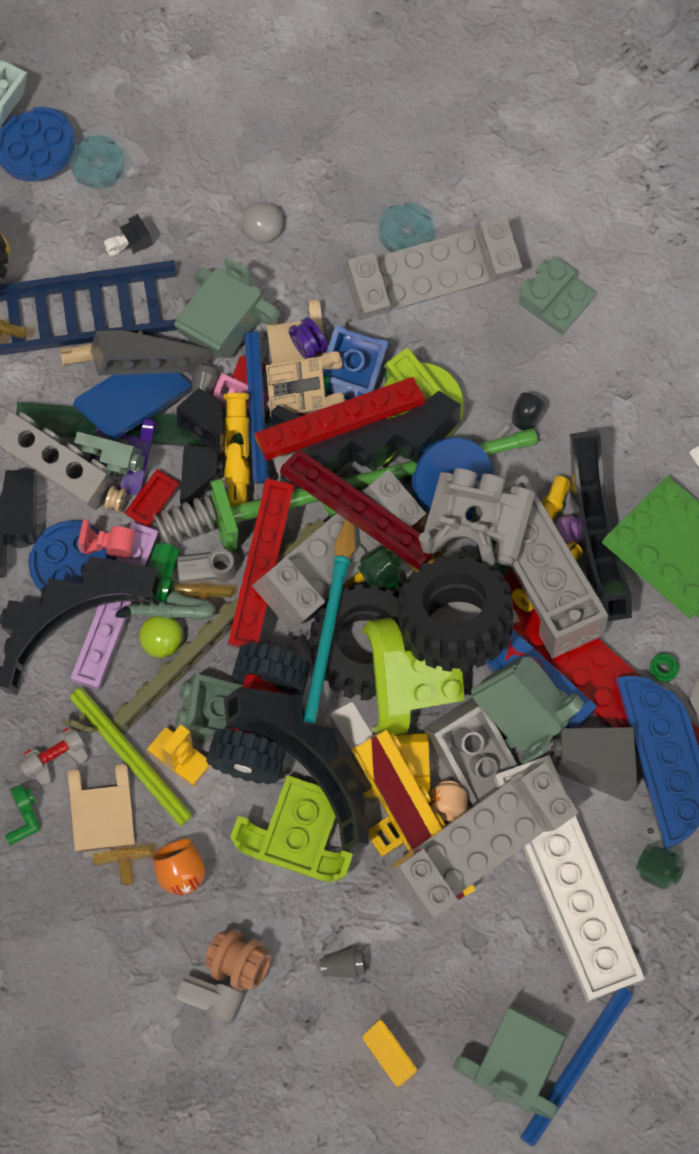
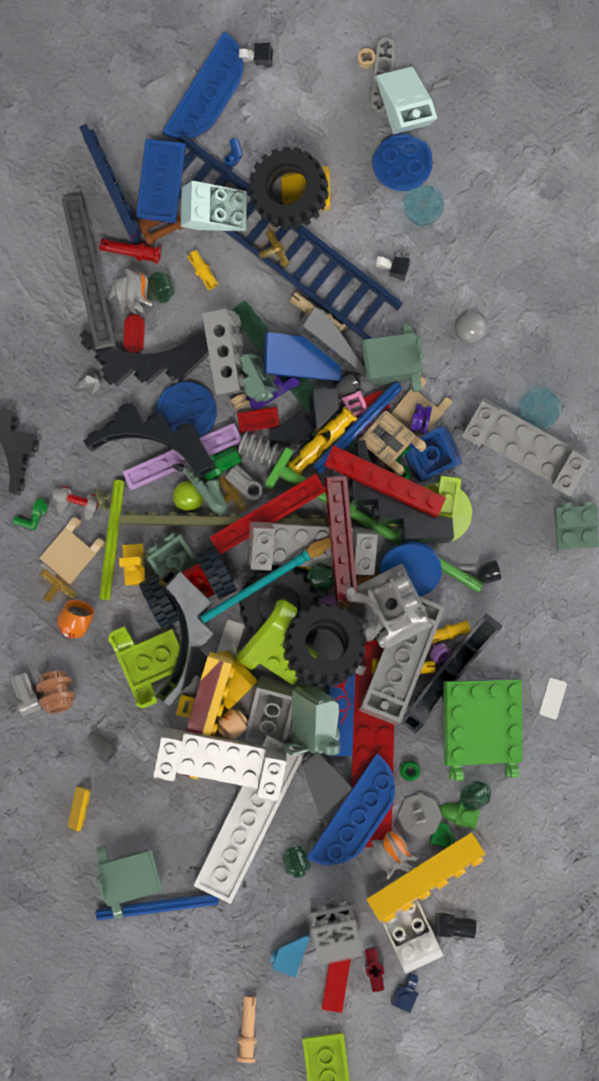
camera: 50 degrees right, 15 degrees up
(117, 542) = (213, 425): coral leg -> none

